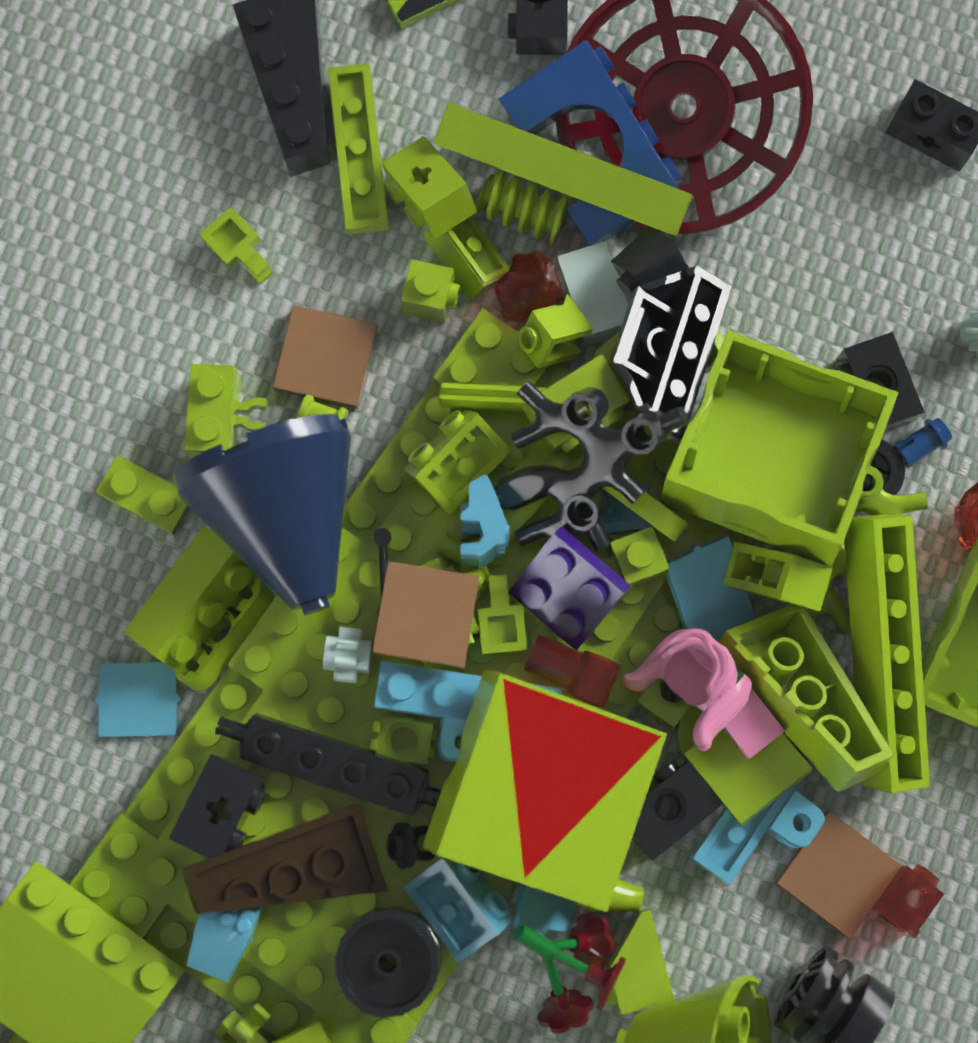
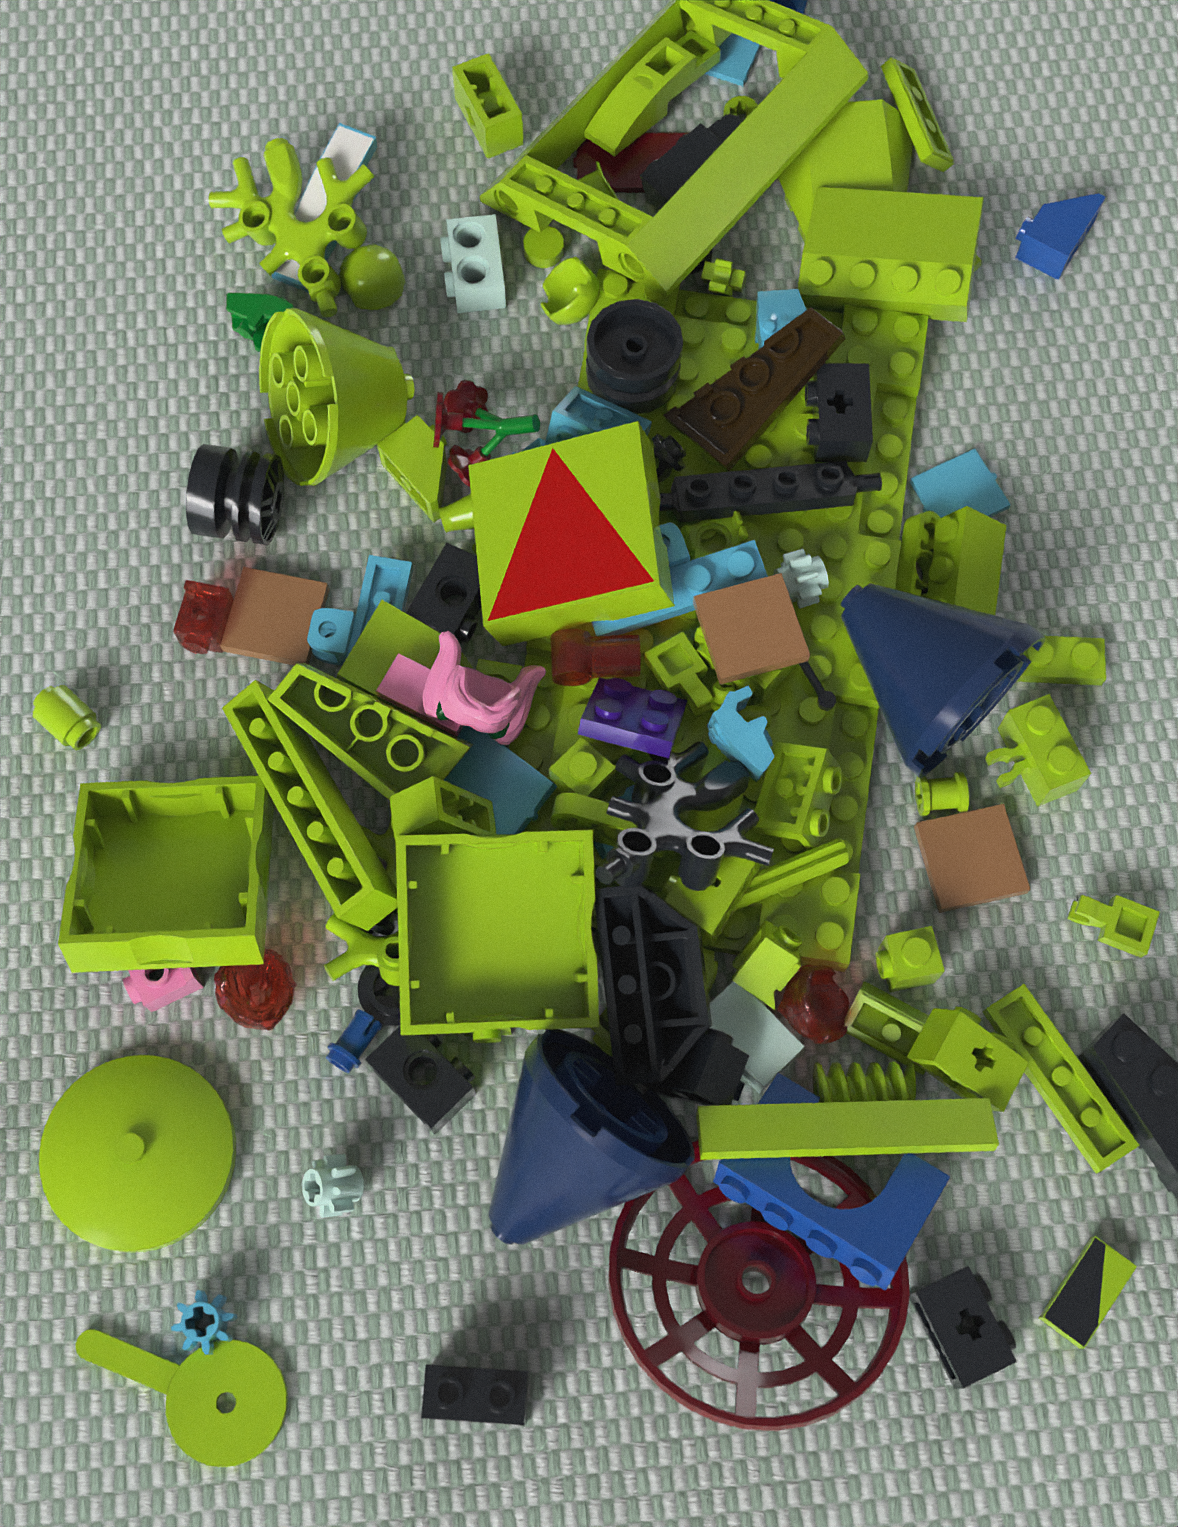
camera: 155 degrees right, 10 degrees down
(776, 254) = (579, 1141): none -> dark blue cone

